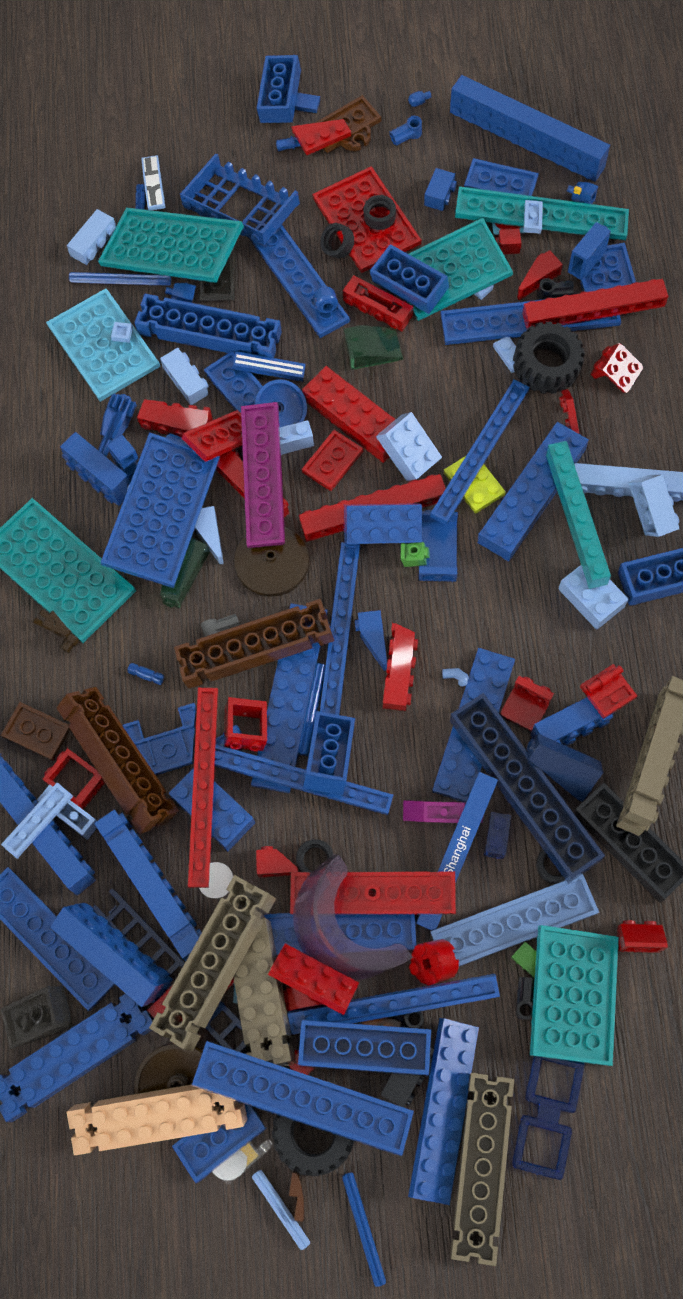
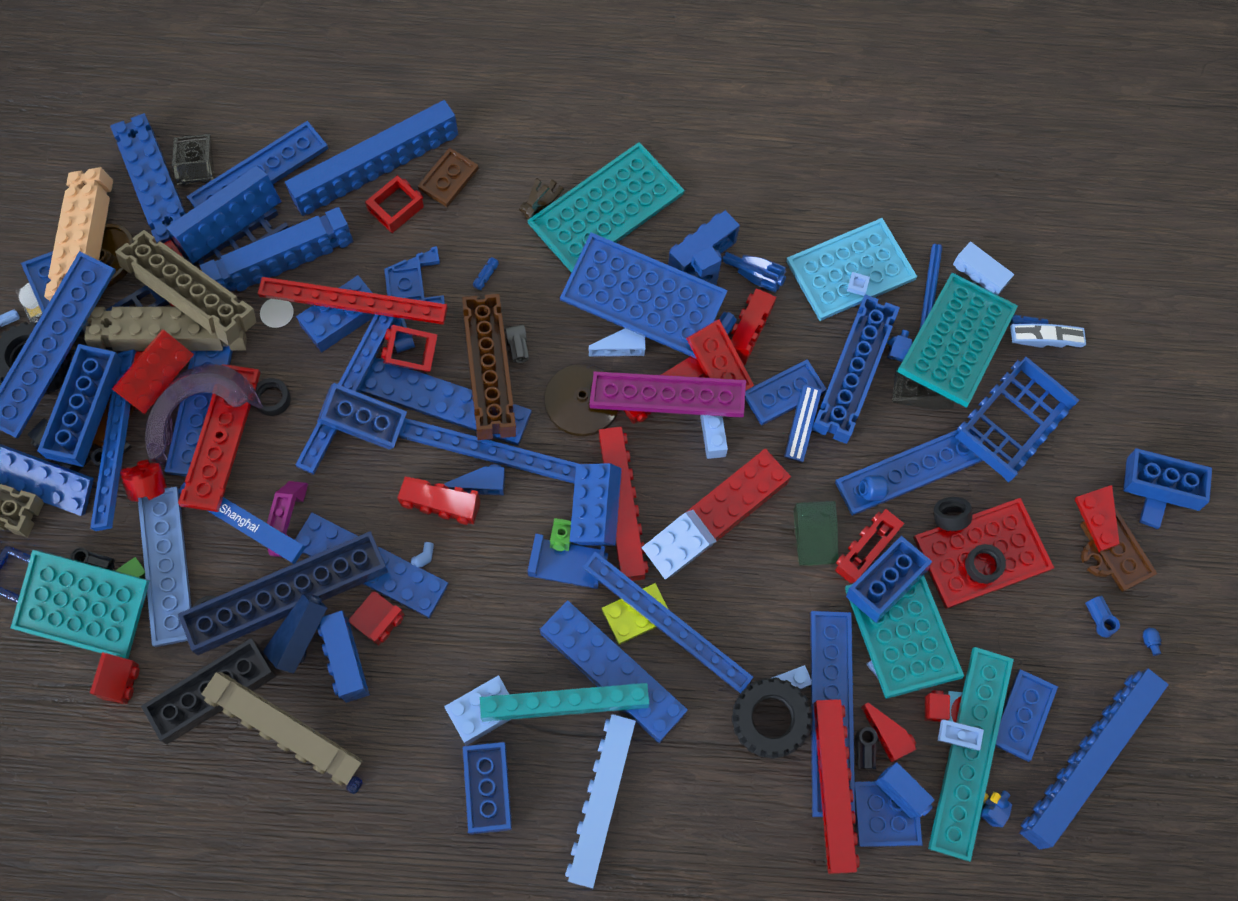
camera: 90 degrees right, 0 degrees up
(37, 820) = (351, 161): light blue tile -> none
(75, 817) = (353, 200): light blue brick -> none
(117, 759) = (401, 236): reddish brown brick -> none
(184, 376) = (802, 340): light blue brick -> none
(192, 564) = (584, 321): clear green slope -> none
(273, 863) = (275, 359): red slope -> none
(289, 143) = (1093, 480): blue axle -> none
(289, 399) = (739, 429): blue dish -> none
(312, 707) = (424, 417): blue axle -> none
(332, 460) = (683, 472): red plate -> none
(439, 189) = (1016, 640): blue brick -> none
(497, 835) = (249, 563): clear blue brick -> none
(567, 405) = (702, 726): red plate -> none
(608, 690) = (355, 688): red plate -> none
(618, 366) = (753, 799): bracket -> none
(654, 505) = (564, 793): light blue brick -> none

